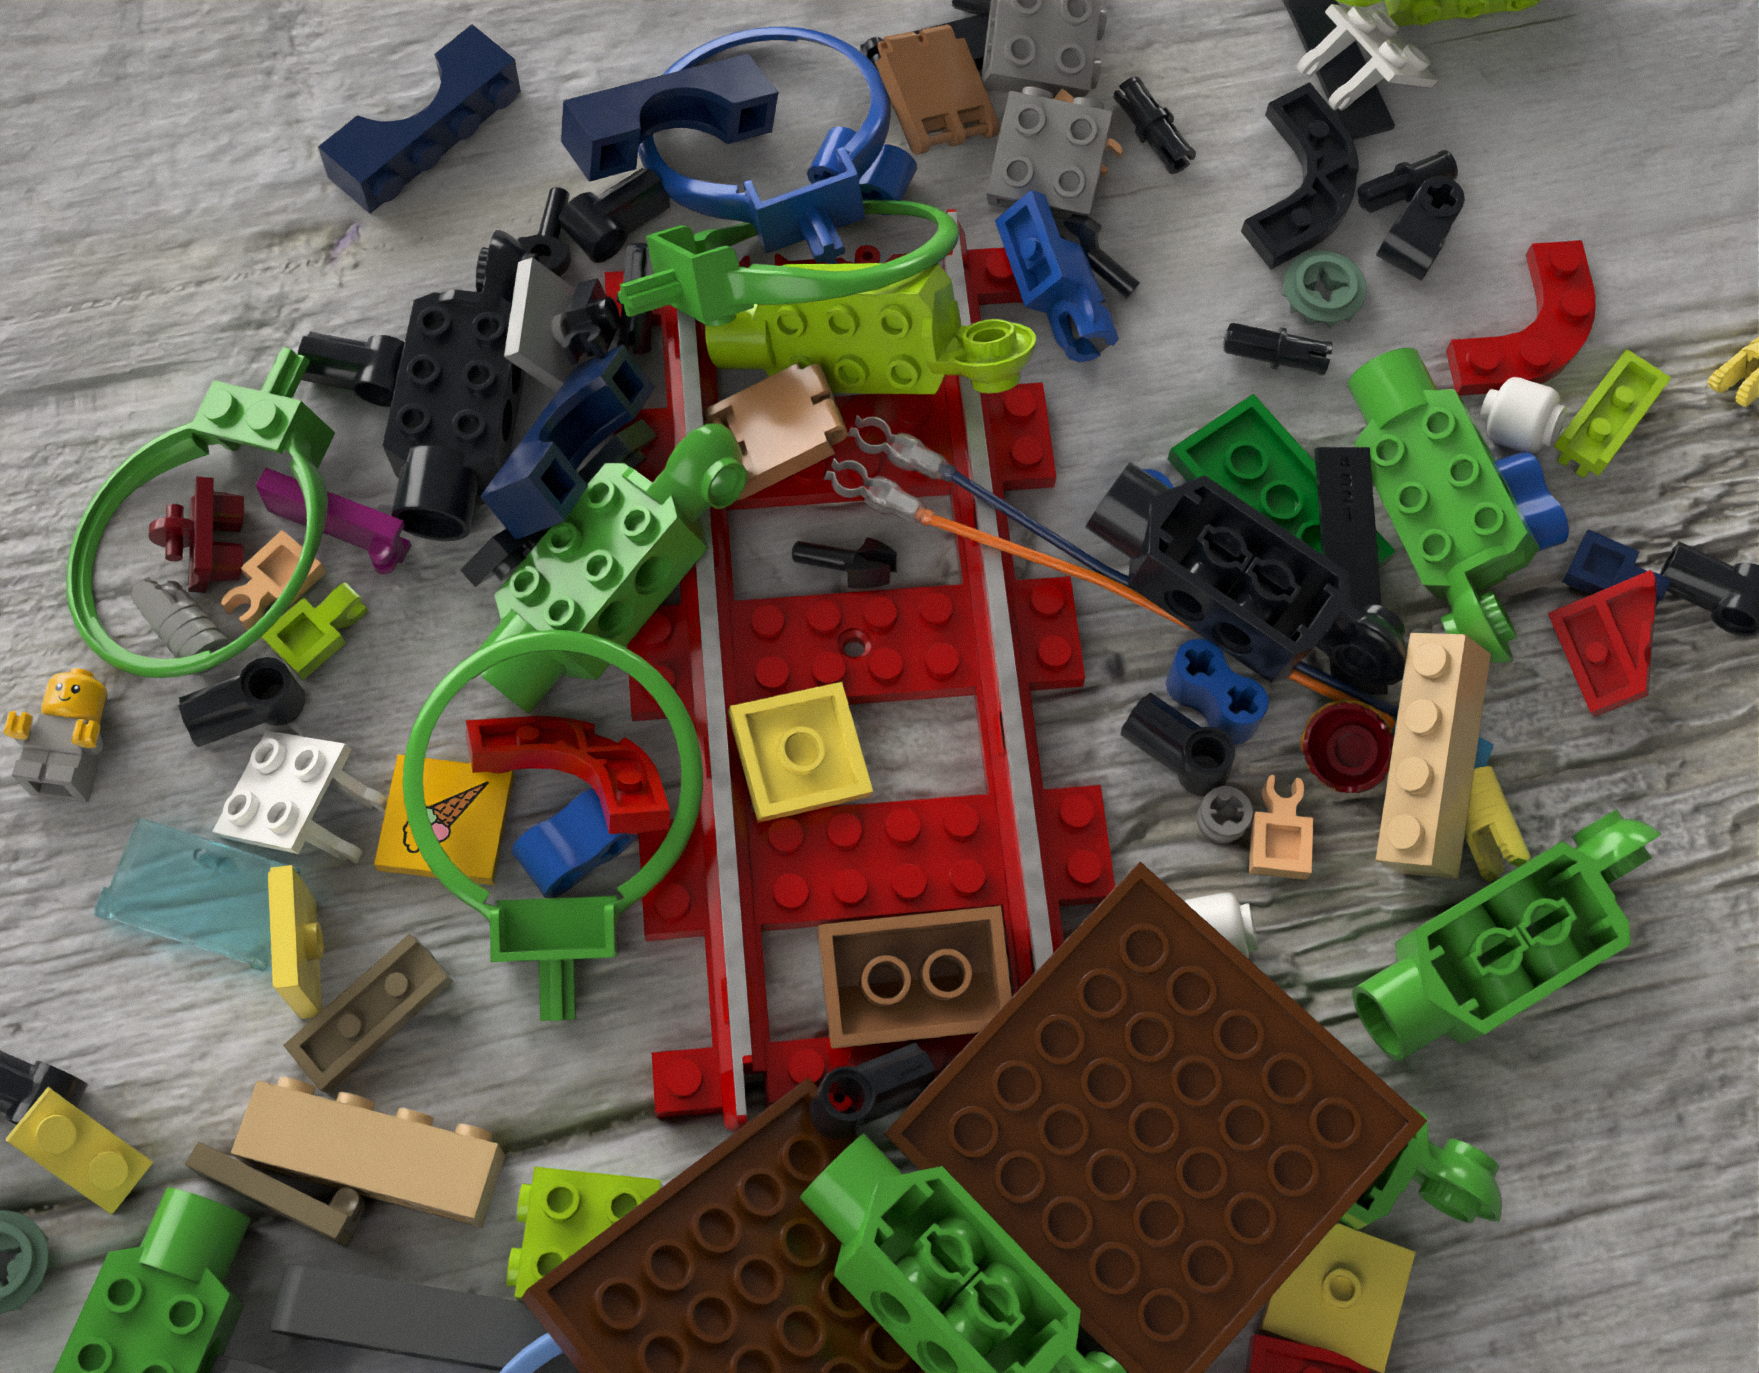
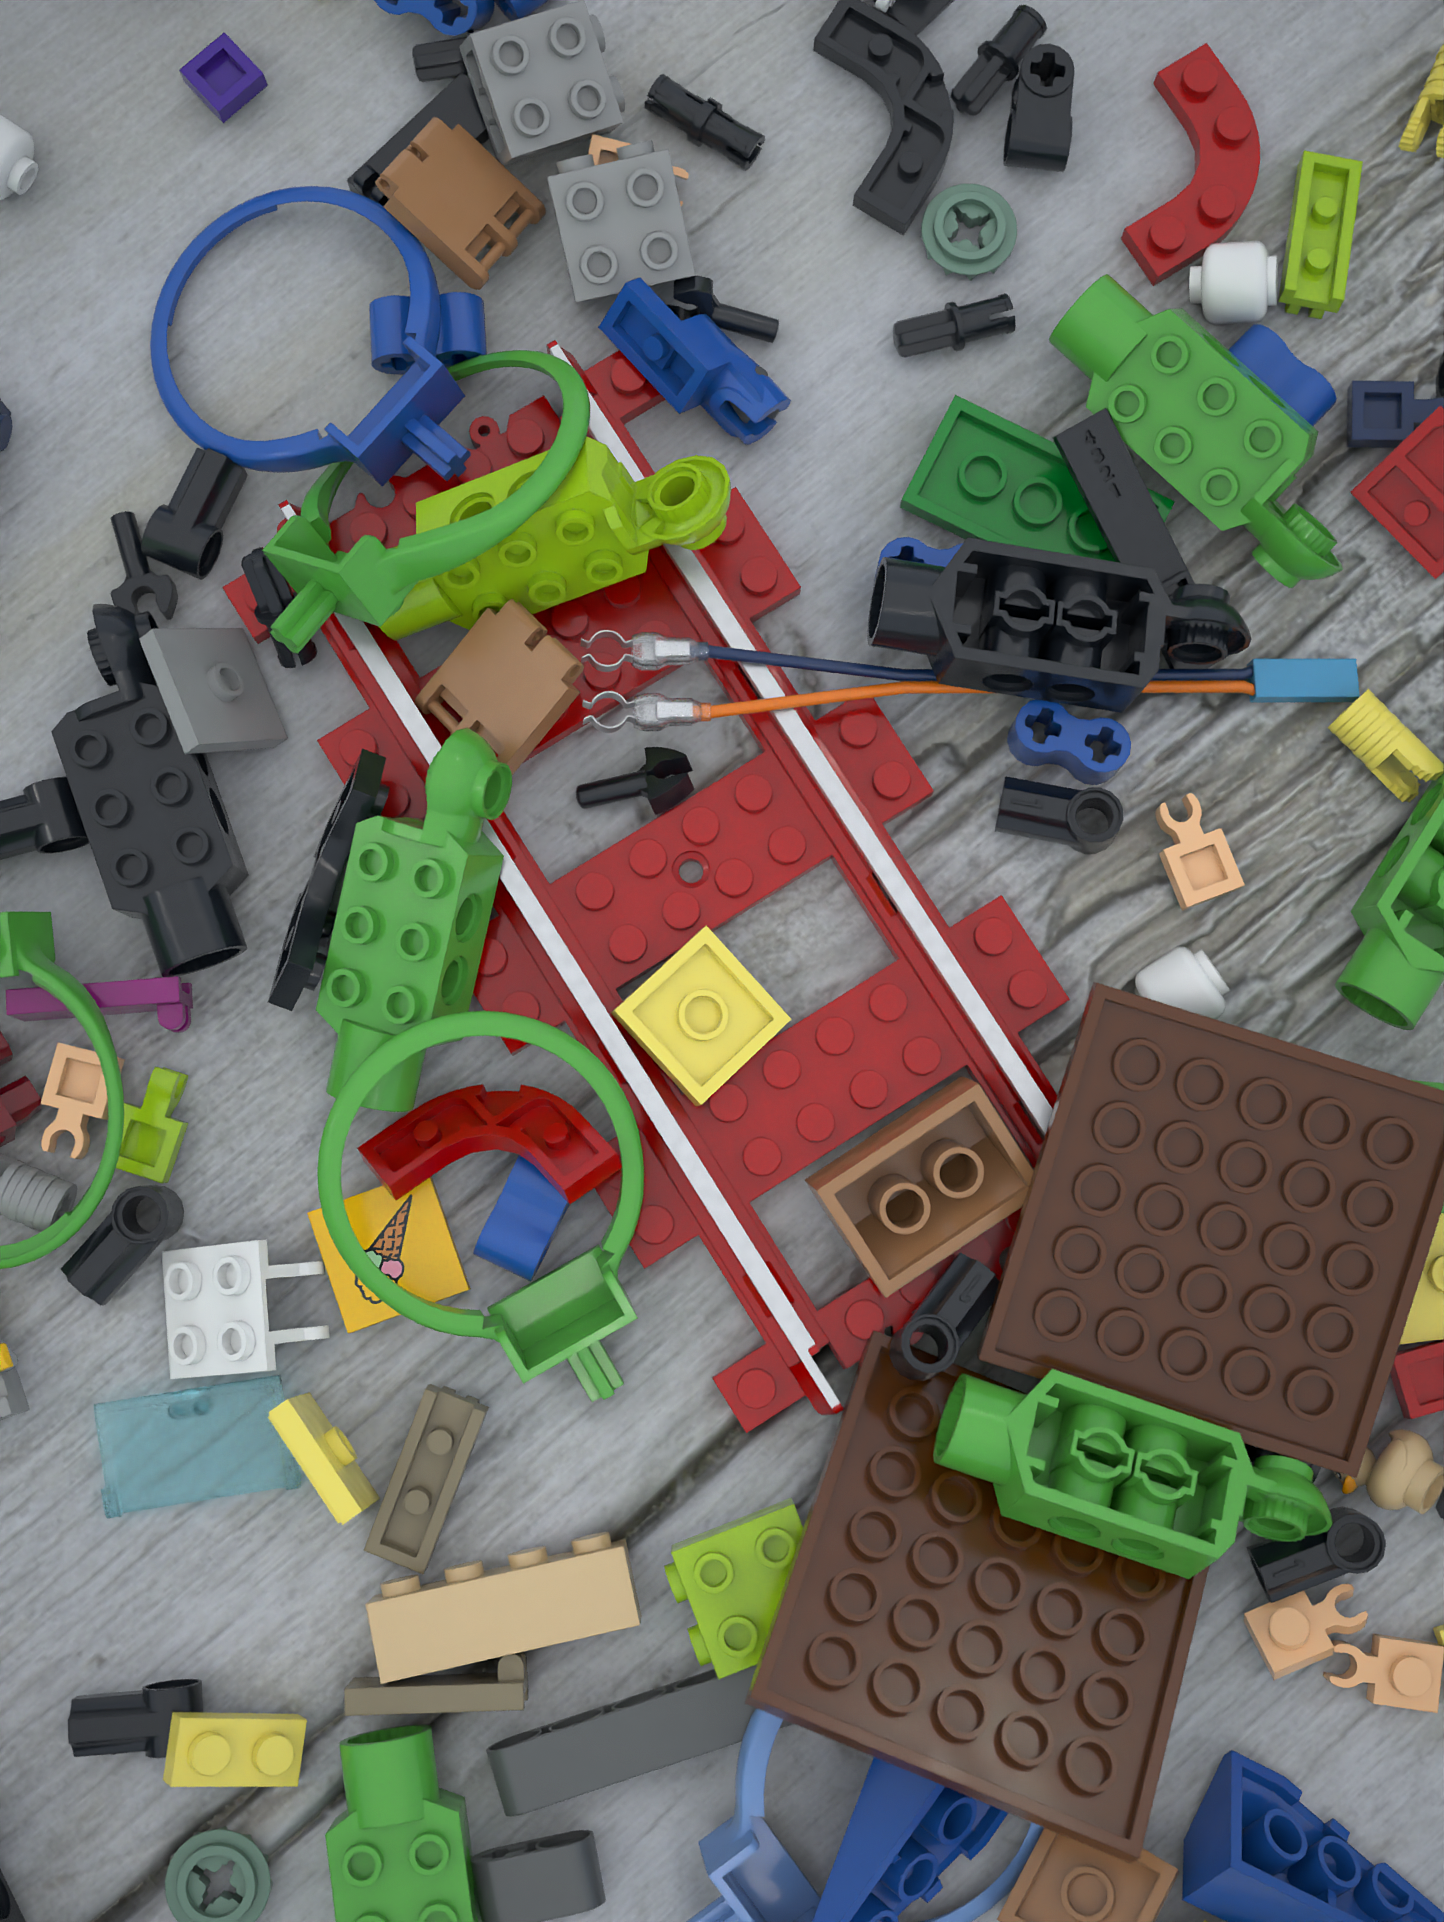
camera: 25 degrees left, 15 degrees up
(541, 476) = (299, 753): dark blue arch -> none
(593, 322) = (248, 658): black plate -> none
(719, 98) = (237, 324): dark blue arch -> none
(1229, 831) = (1142, 879): light grey bush -> none
(1347, 746) = (1223, 737): dark red hair -> none
(1433, 755) = (1313, 712): tan brick -> none

